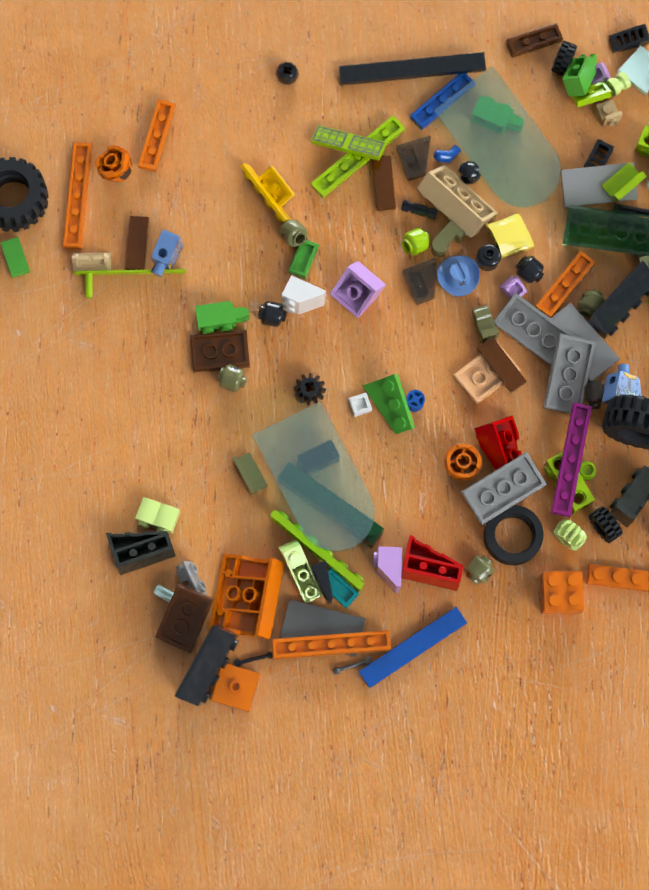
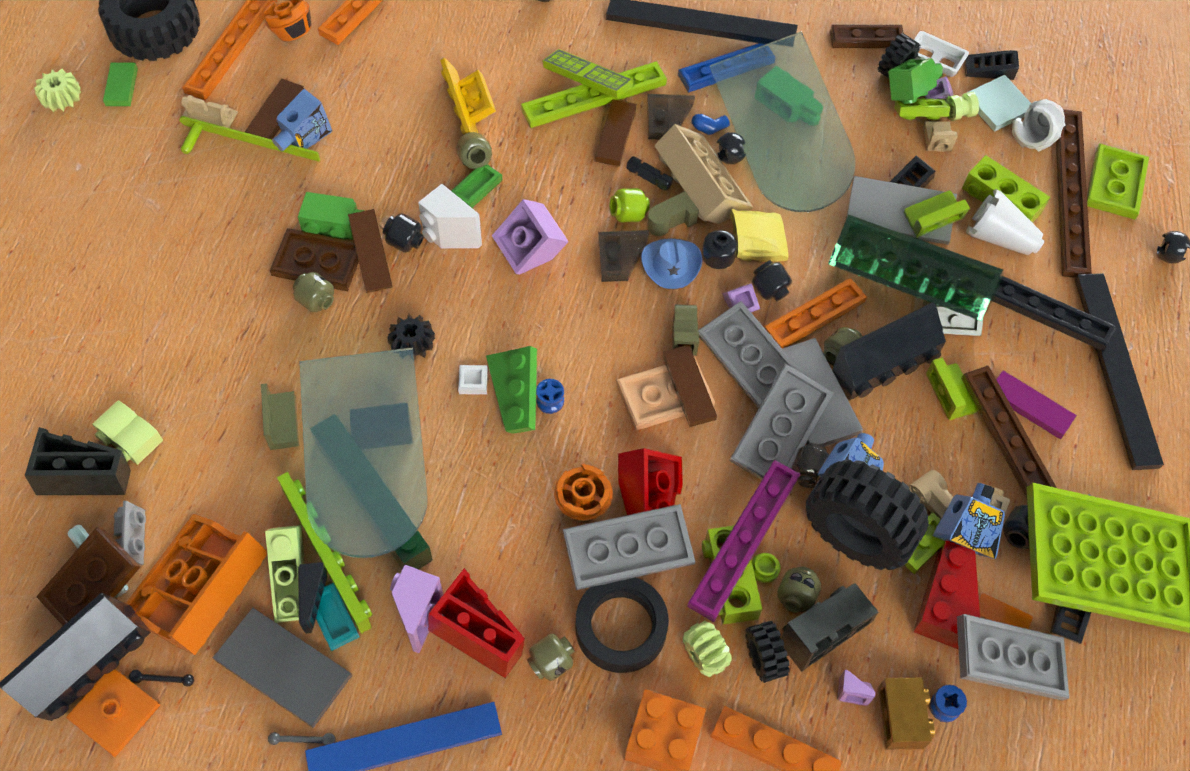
camera: 20 degrees right, 15 degrees down
(256, 335) = (370, 250): none -> reddish brown tile
(331, 644) = (281, 694): orange tile -> none
(590, 36) = (940, 50): none -> white piece
(612, 478) = (799, 589): none -> olive head

